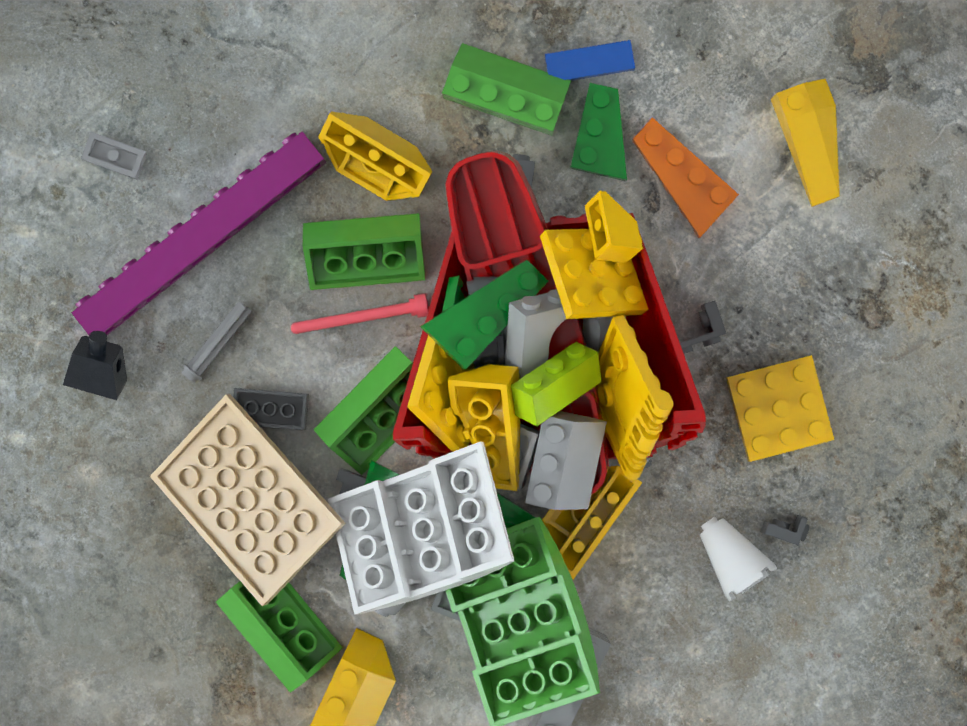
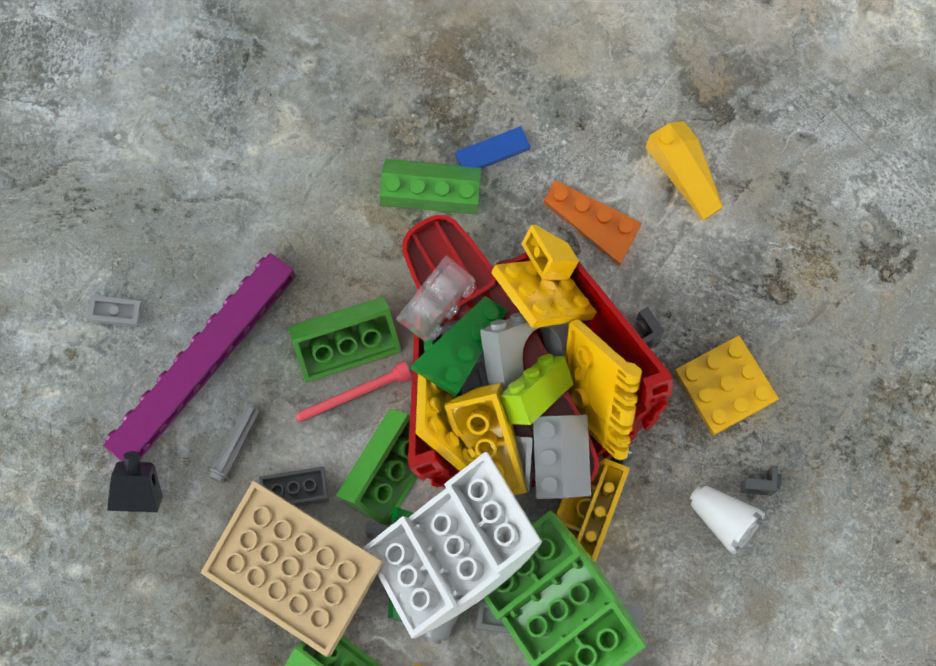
camera: 20 degrees left, 15 degrees down
(374, 156) = (334, 261): yellow wedge -> none
(470, 255) = (437, 300): none -> clear slope
(600, 135) = (515, 202): green wing -> none

